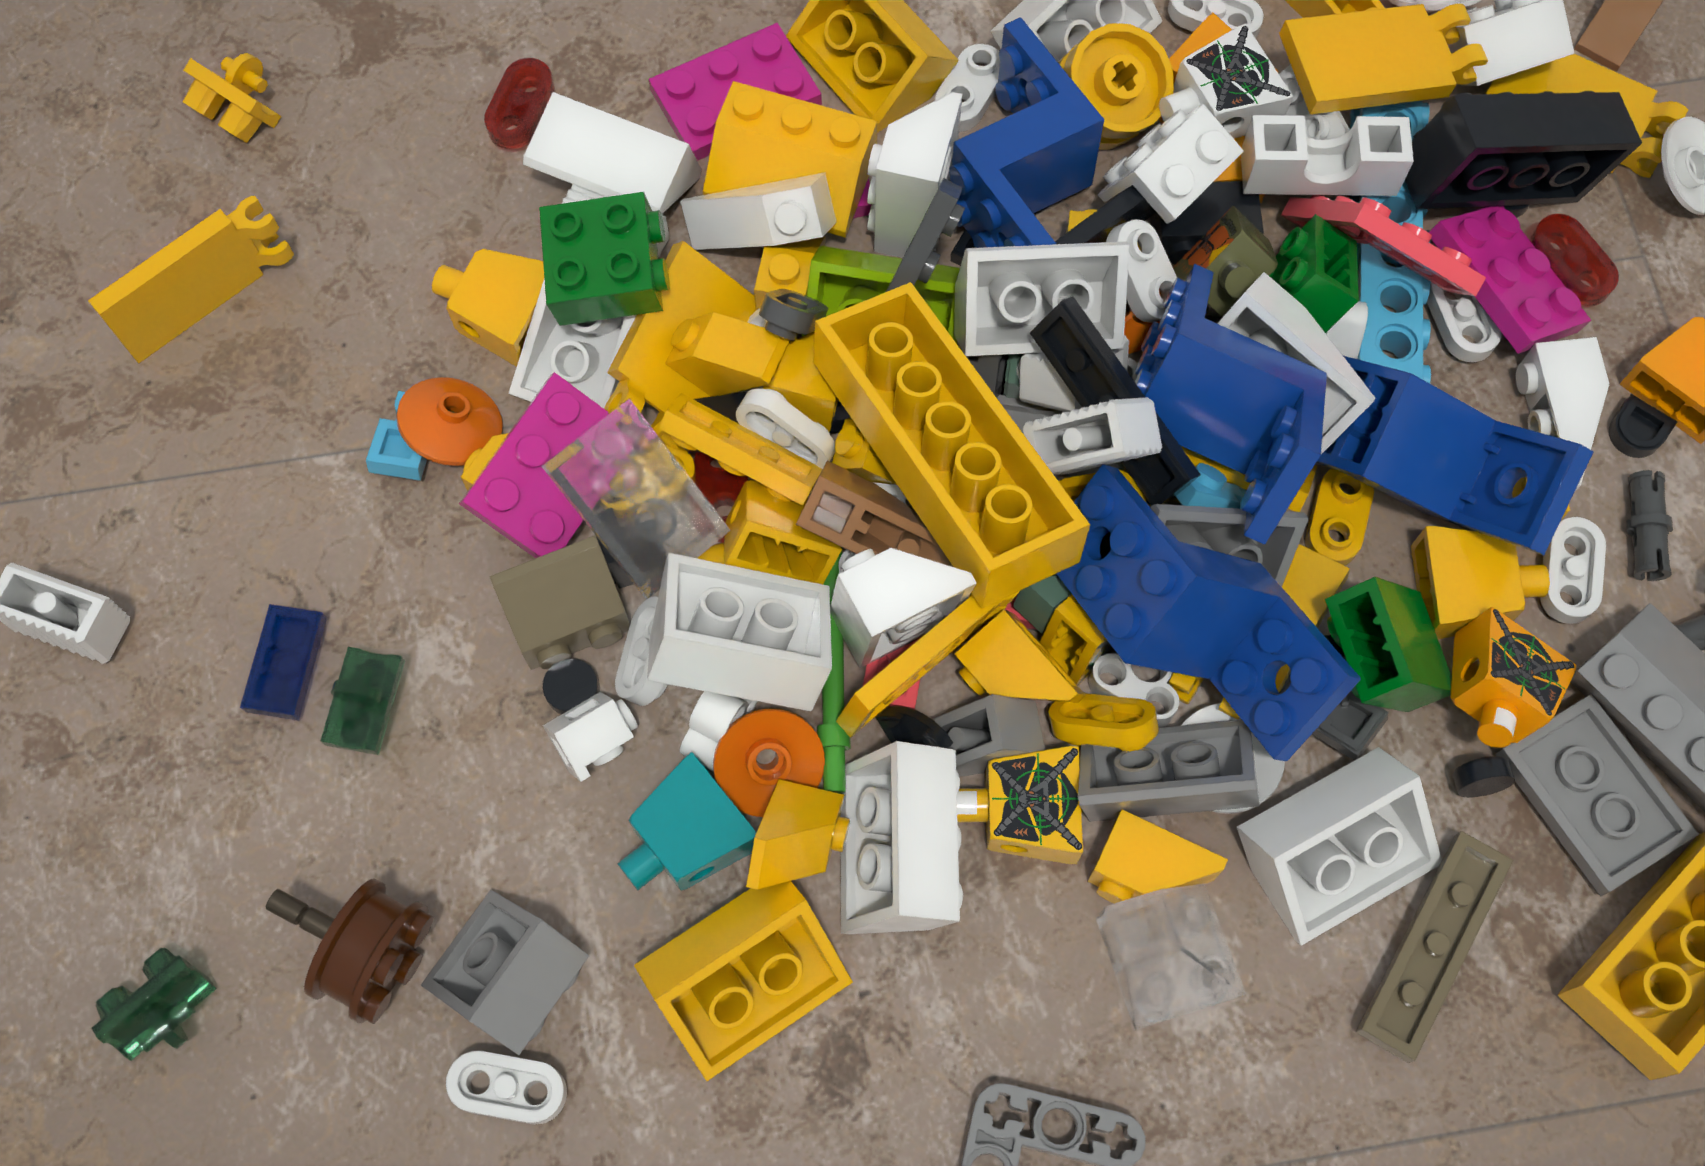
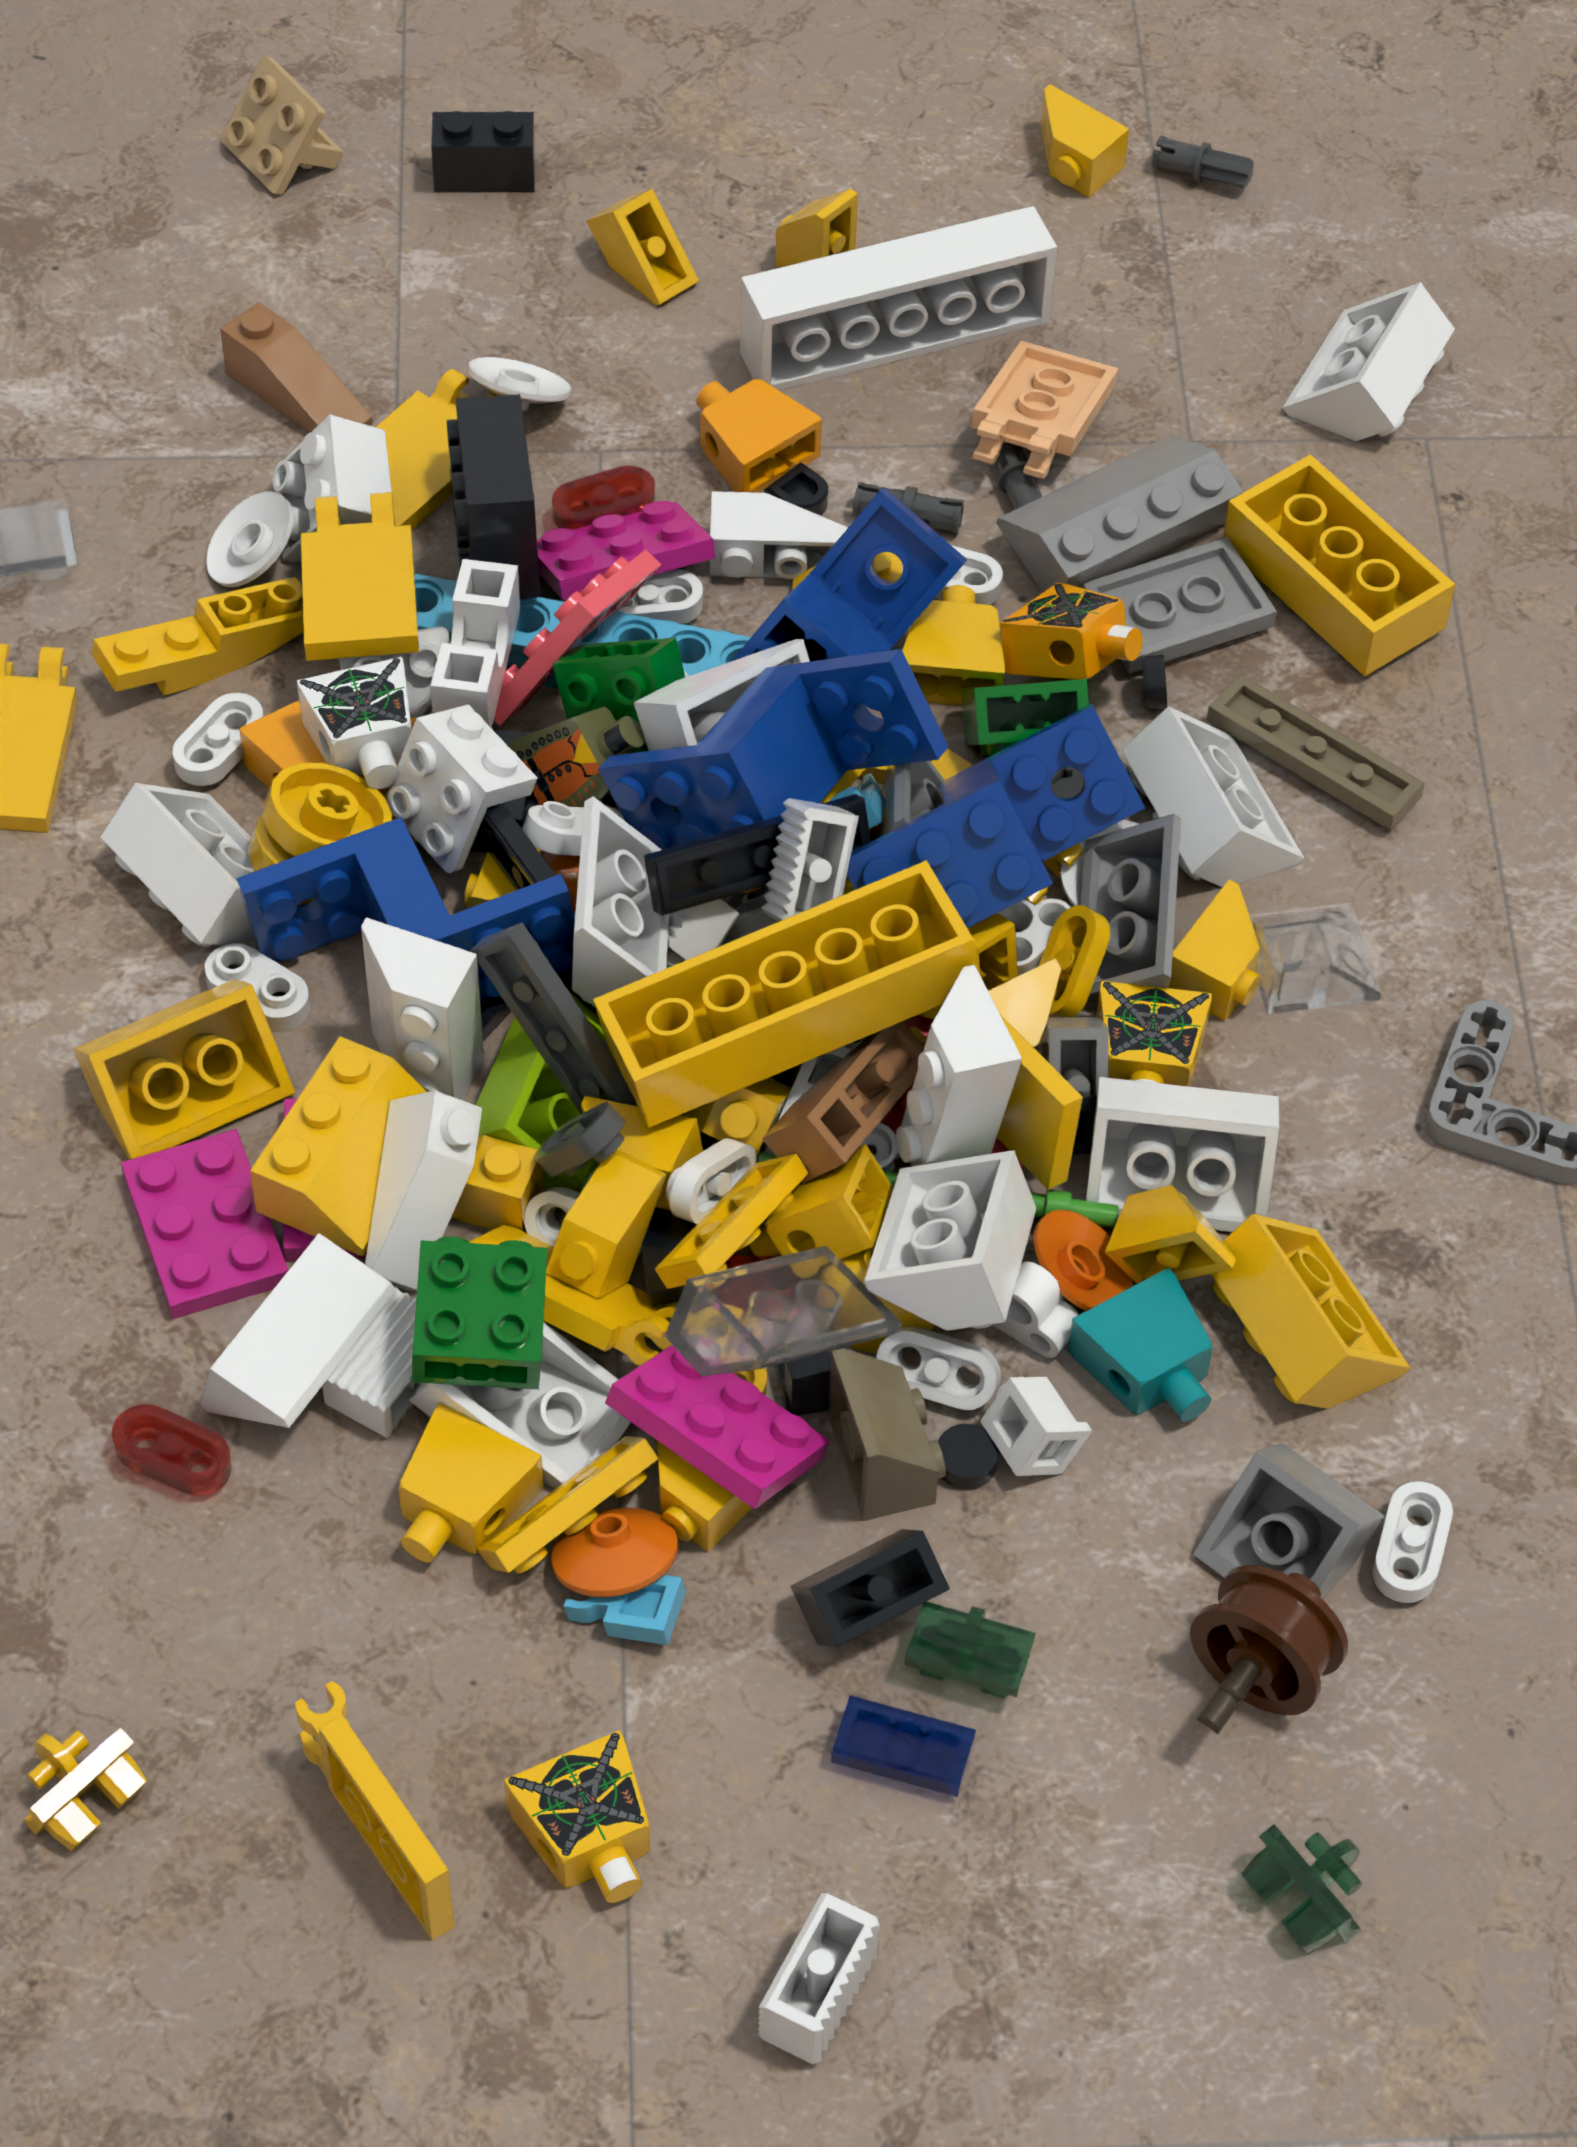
camera: 85 degrees left, 15 degrees down
(209, 432) = (584, 1816): none -> torso
(412, 612) = (870, 1587): none -> black brick
(477, 372) = (569, 1506): none -> yellow plate

